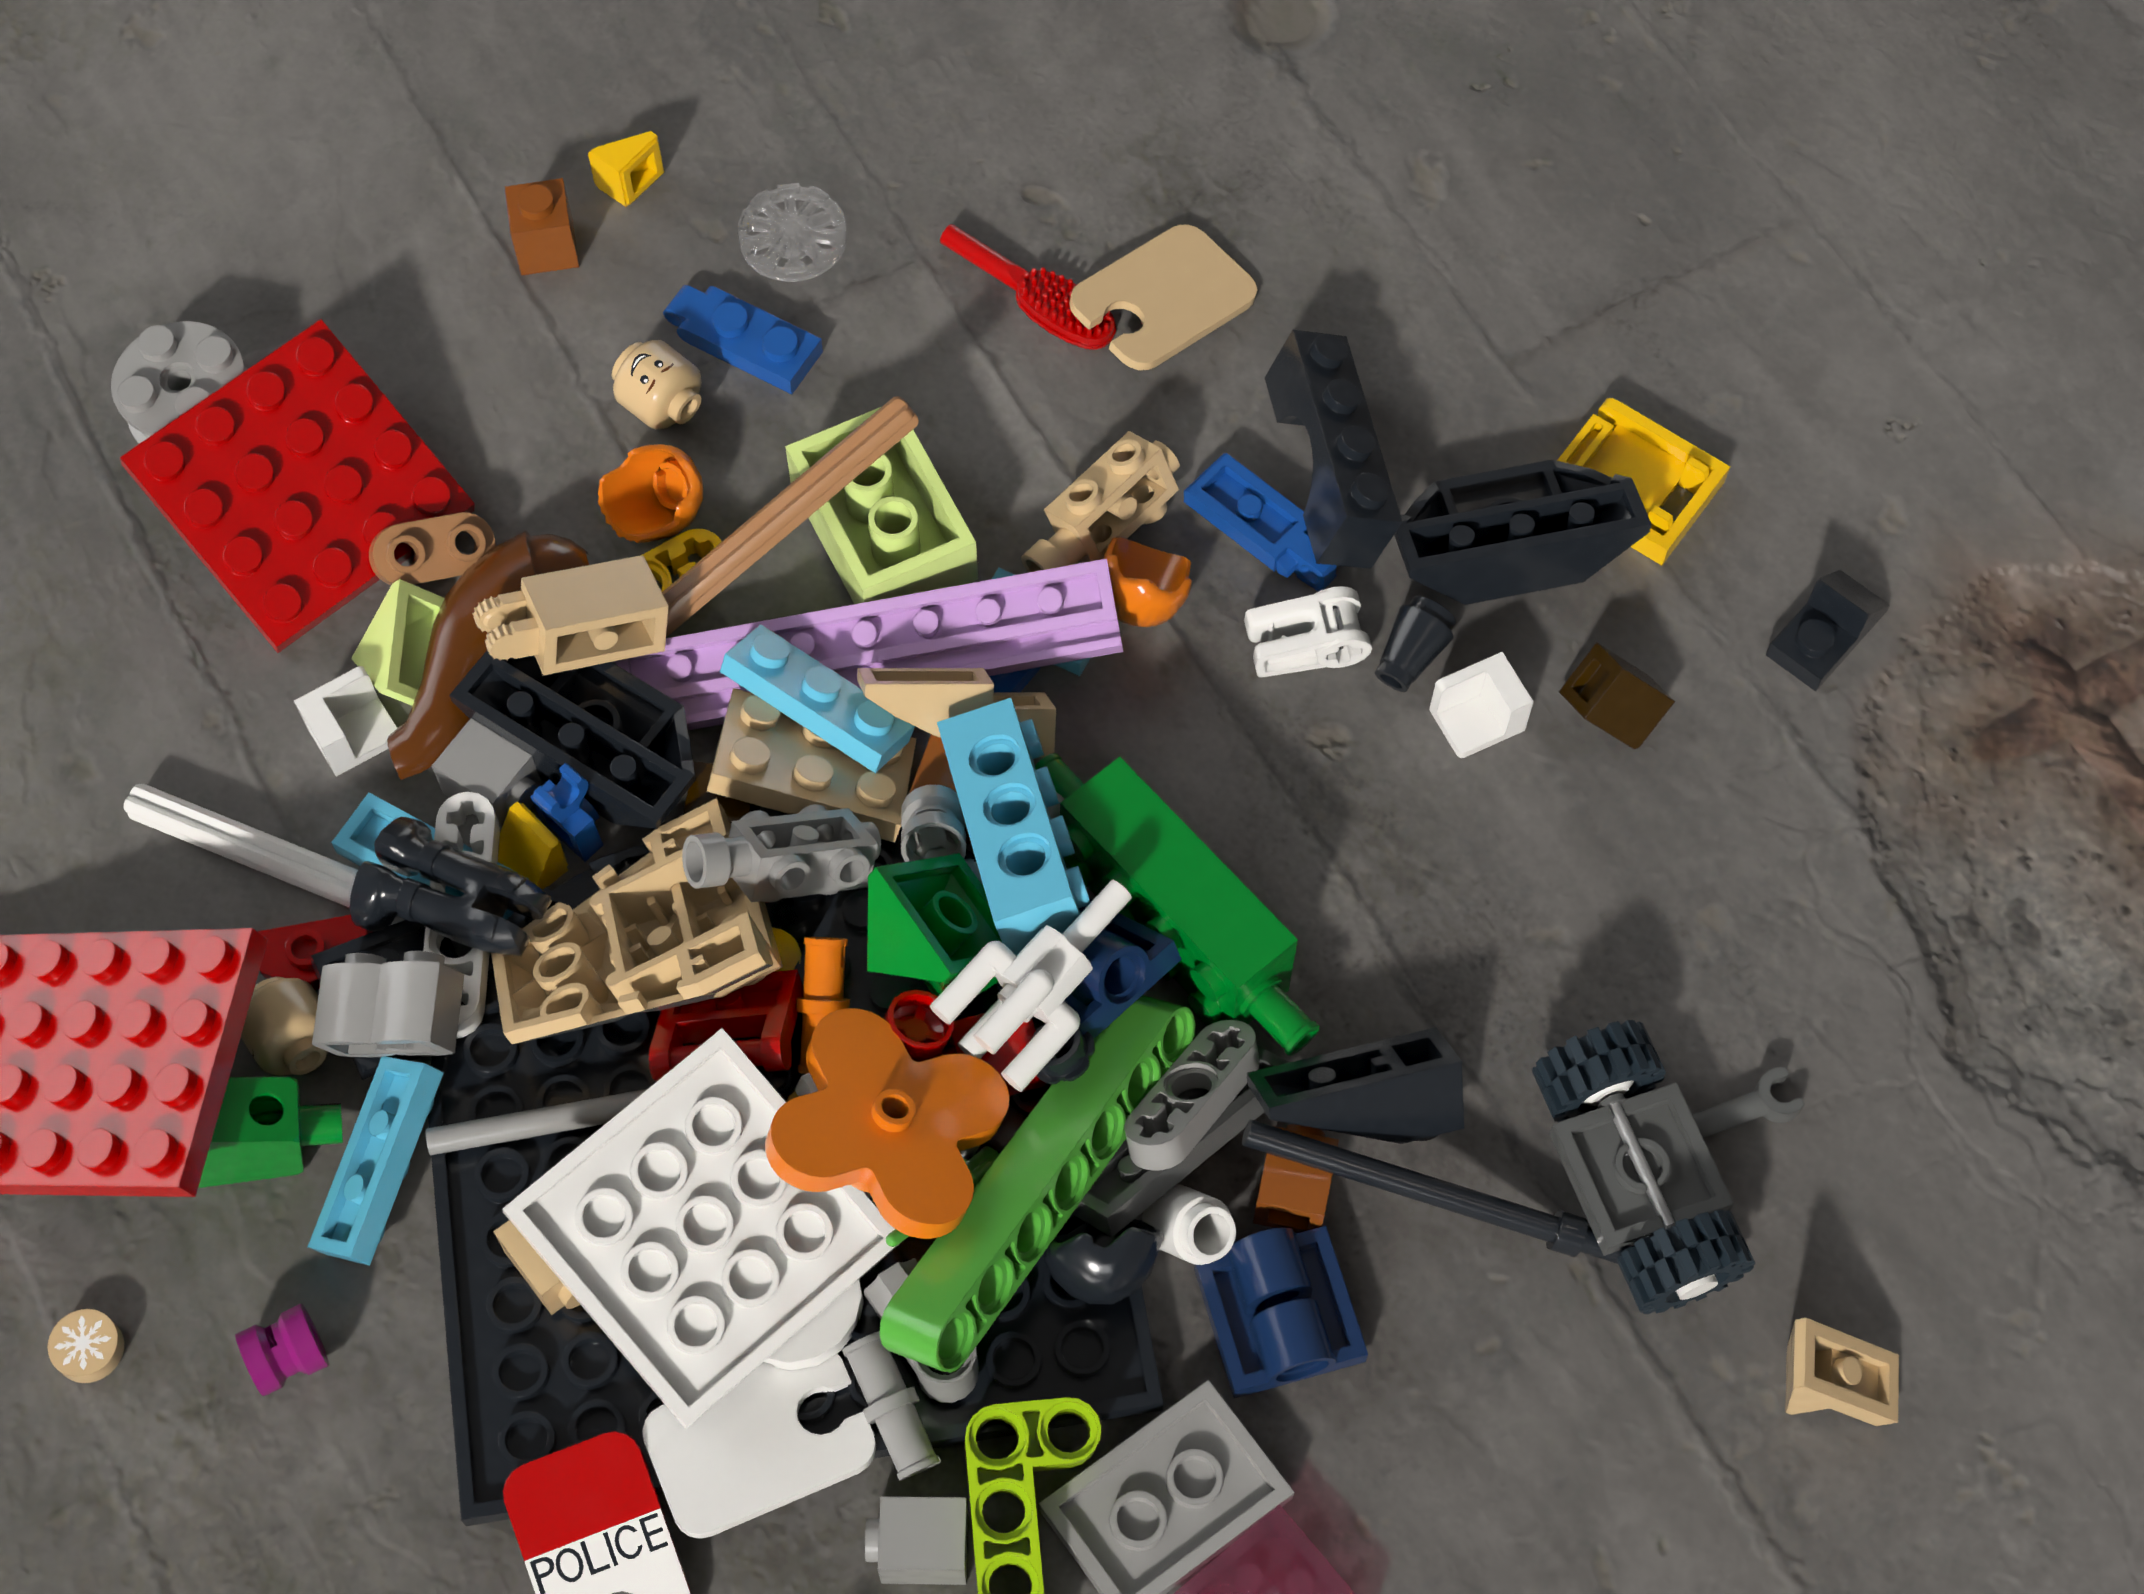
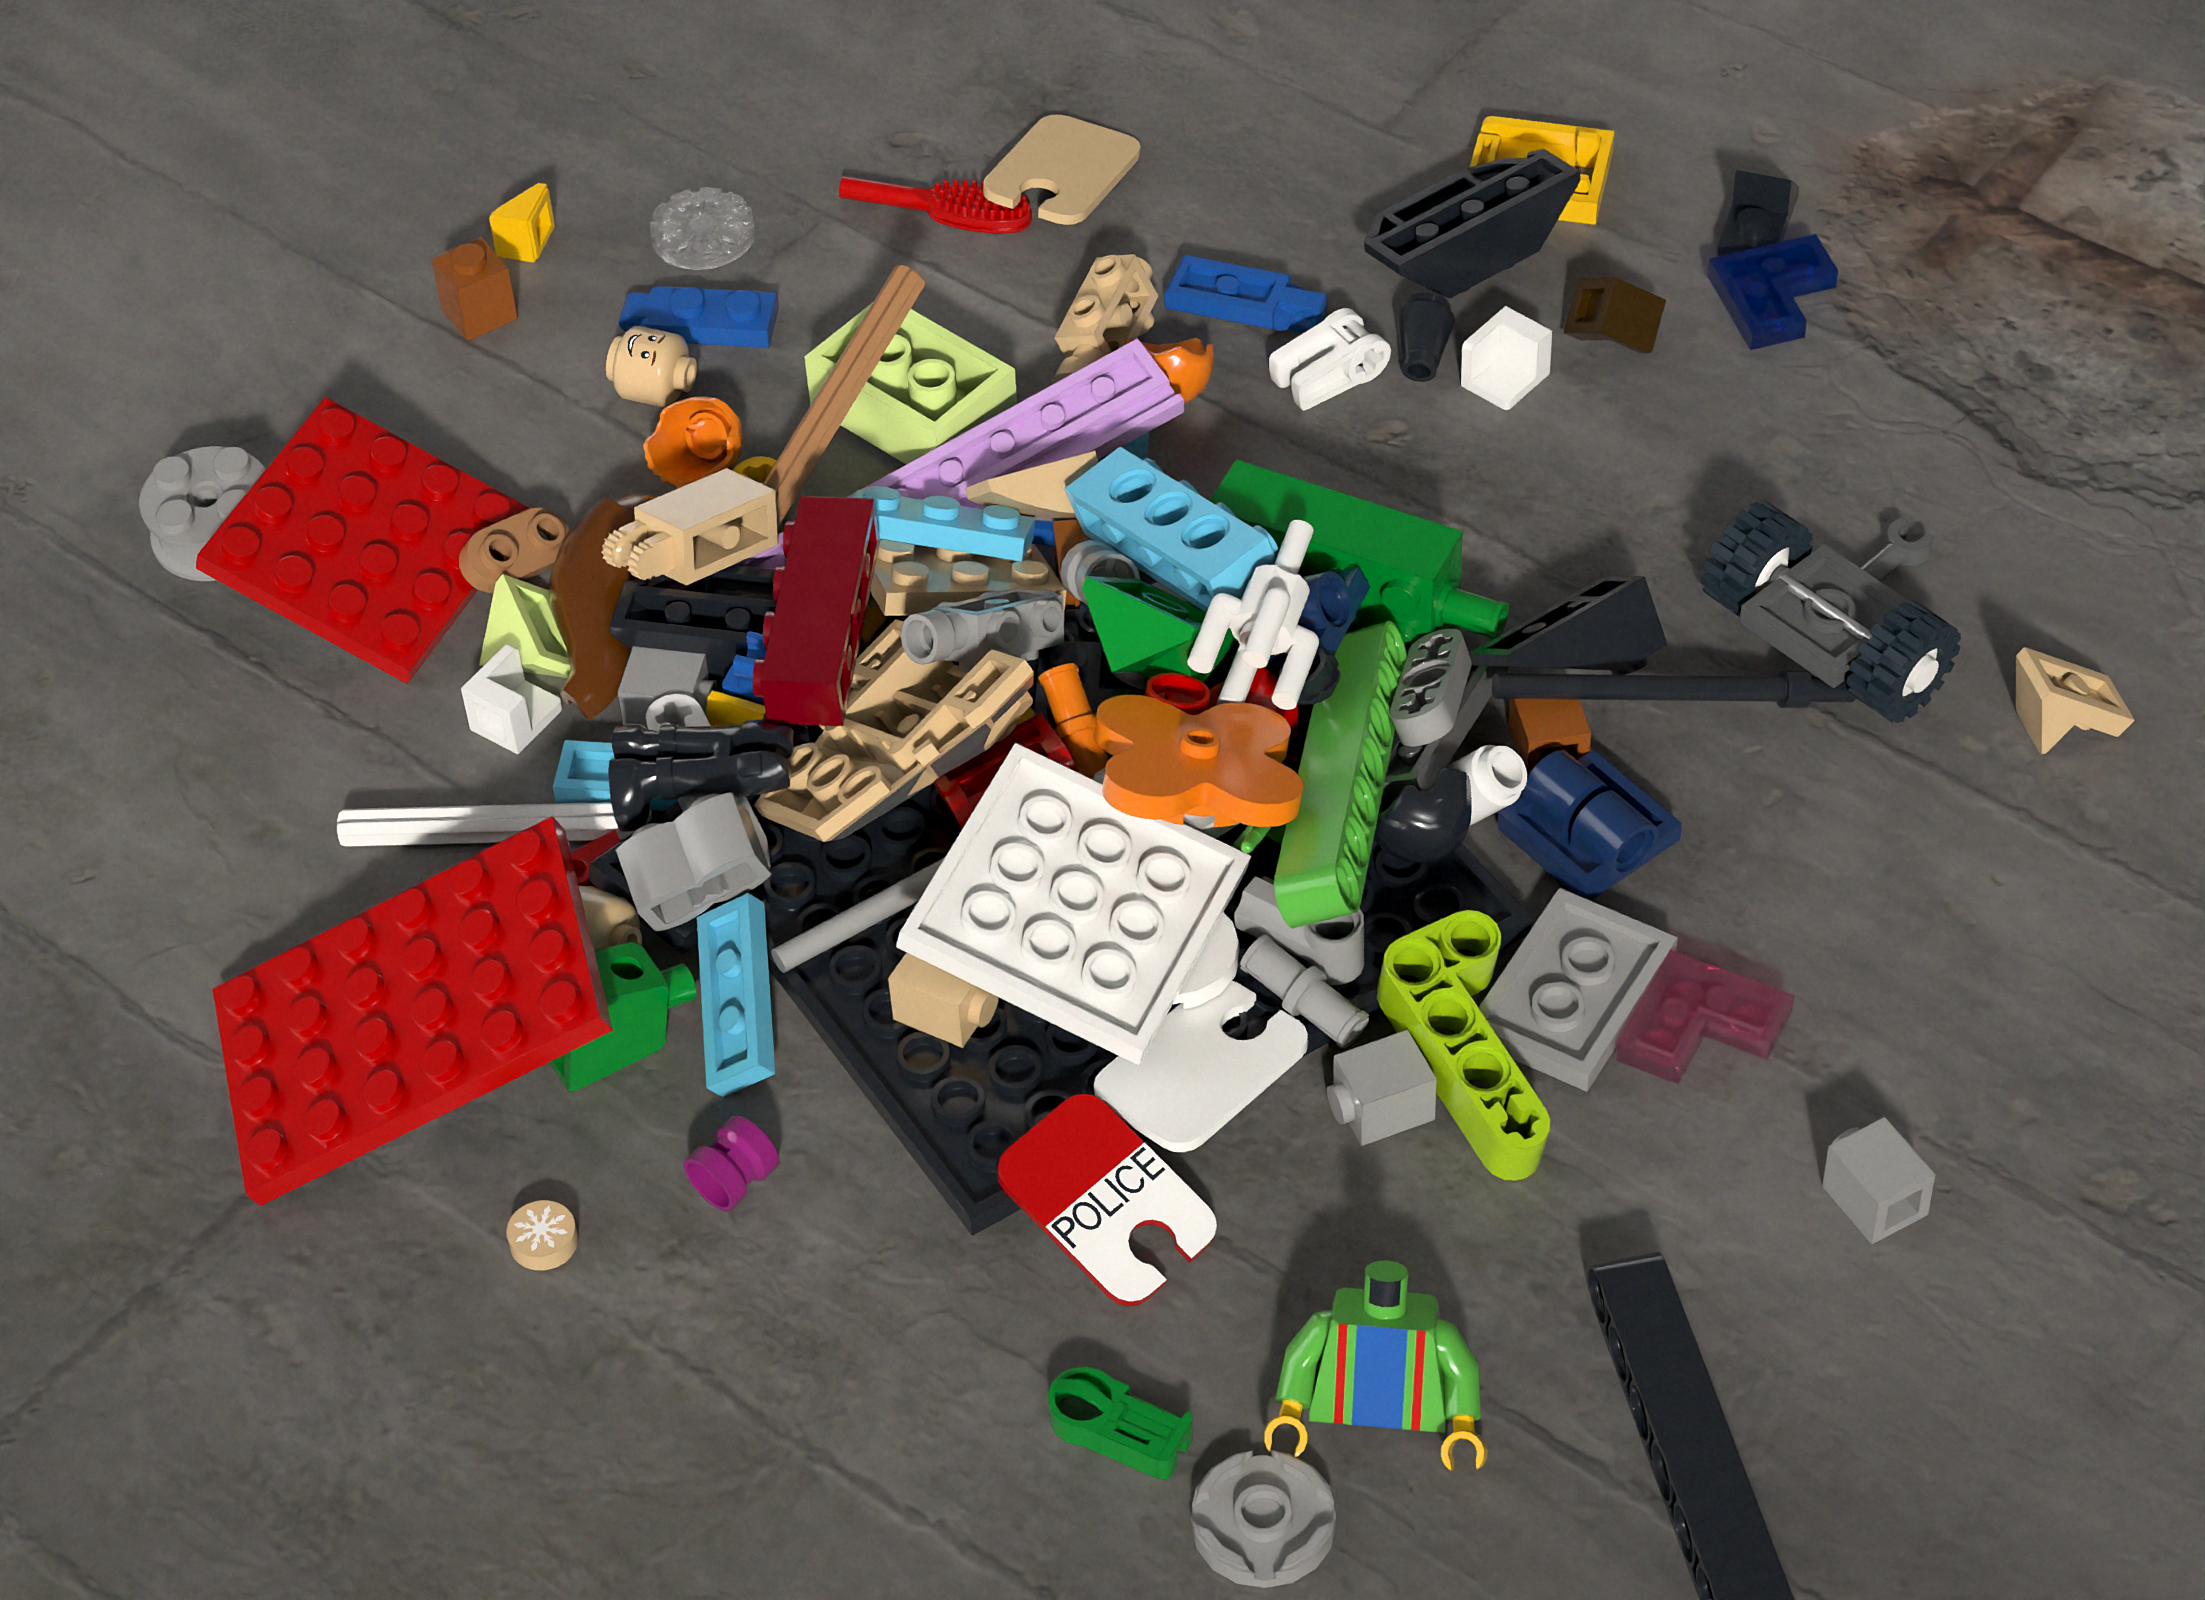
camera: 20 degrees left, 15 degrees down
(630, 775) = (818, 611): none -> dark red brick
(1350, 496) = (1316, 240): black arch -> none
(1784, 712) = (1762, 285): none -> clear blue plate

